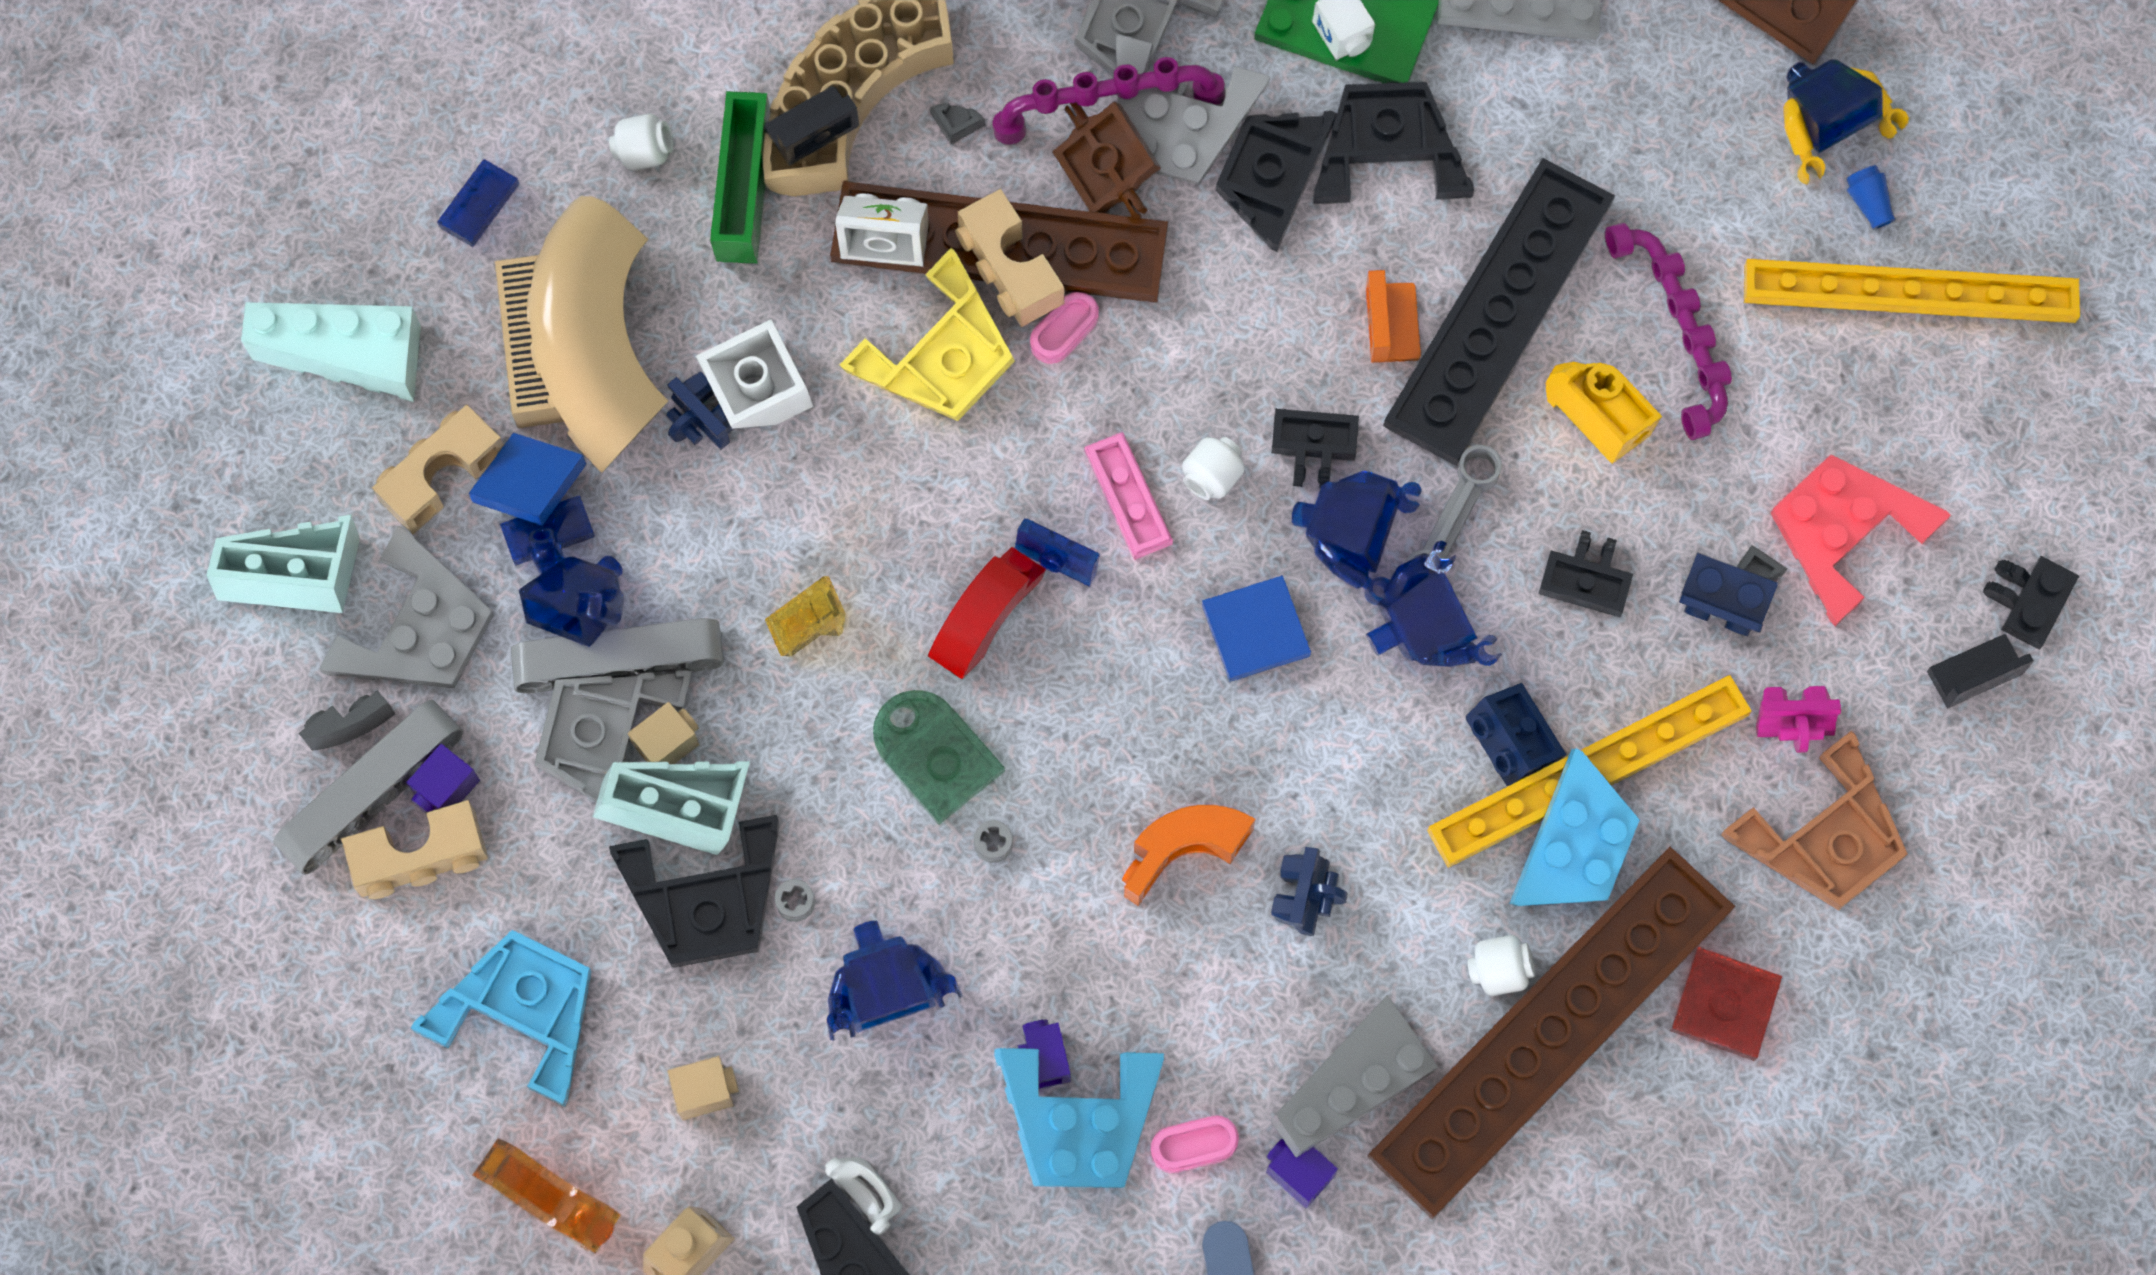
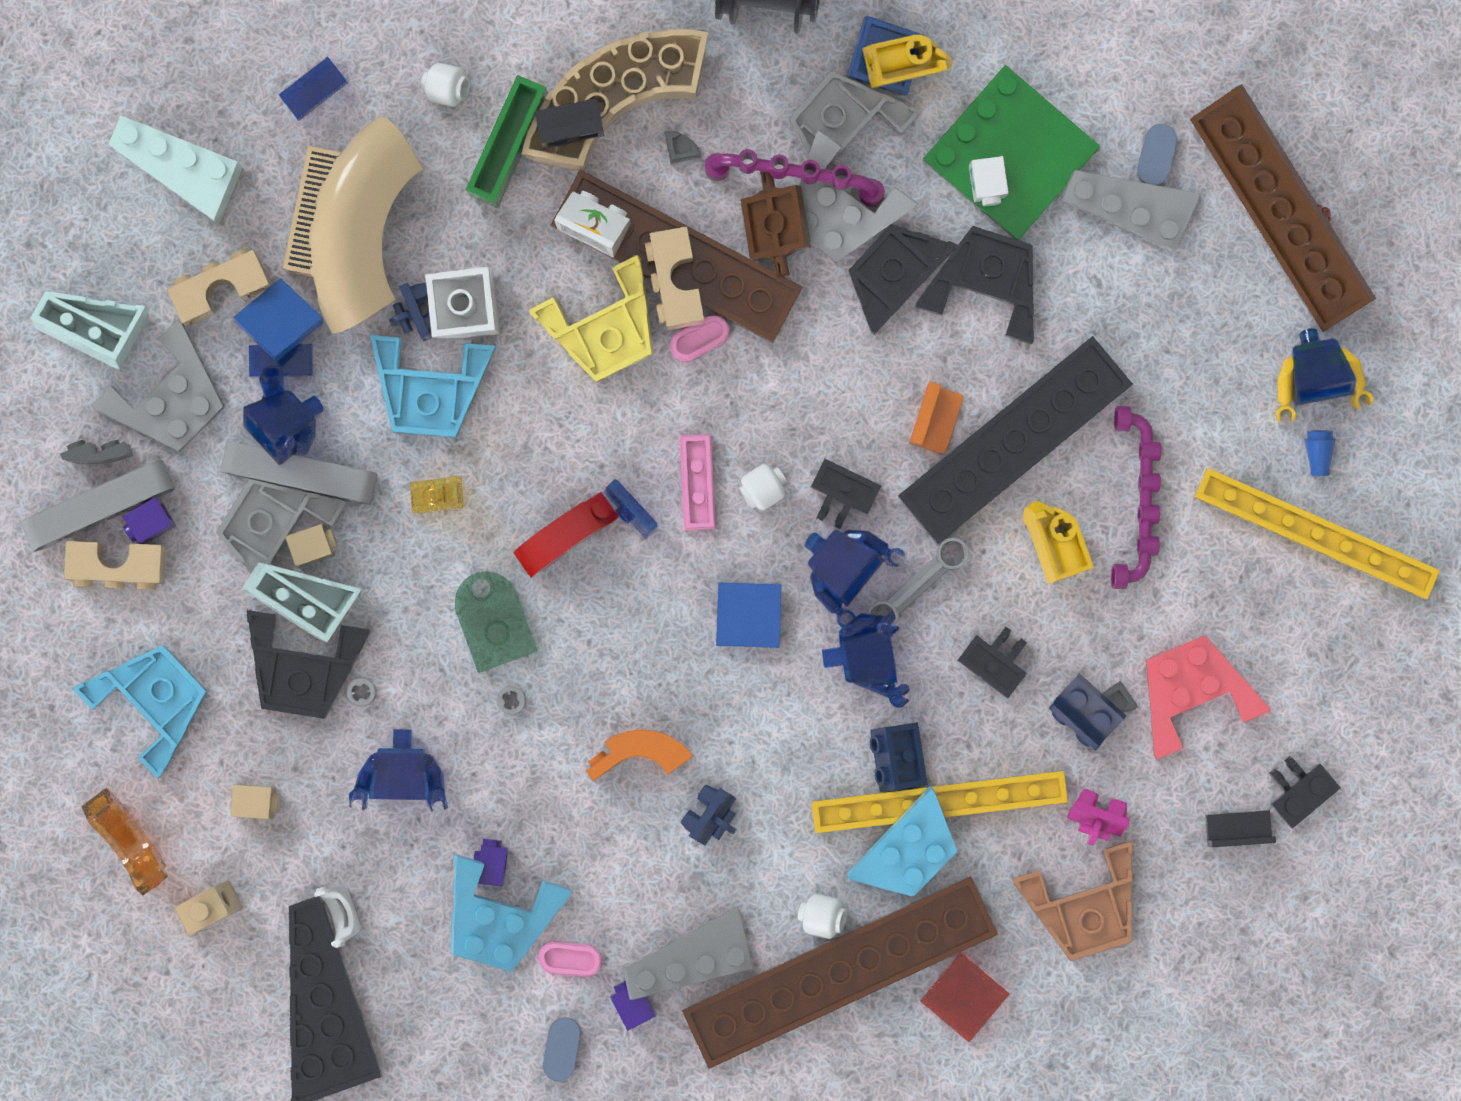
camera: 20 degrees right, 15 degrees up
(750, 513) = (428, 400): none -> medium azure wing

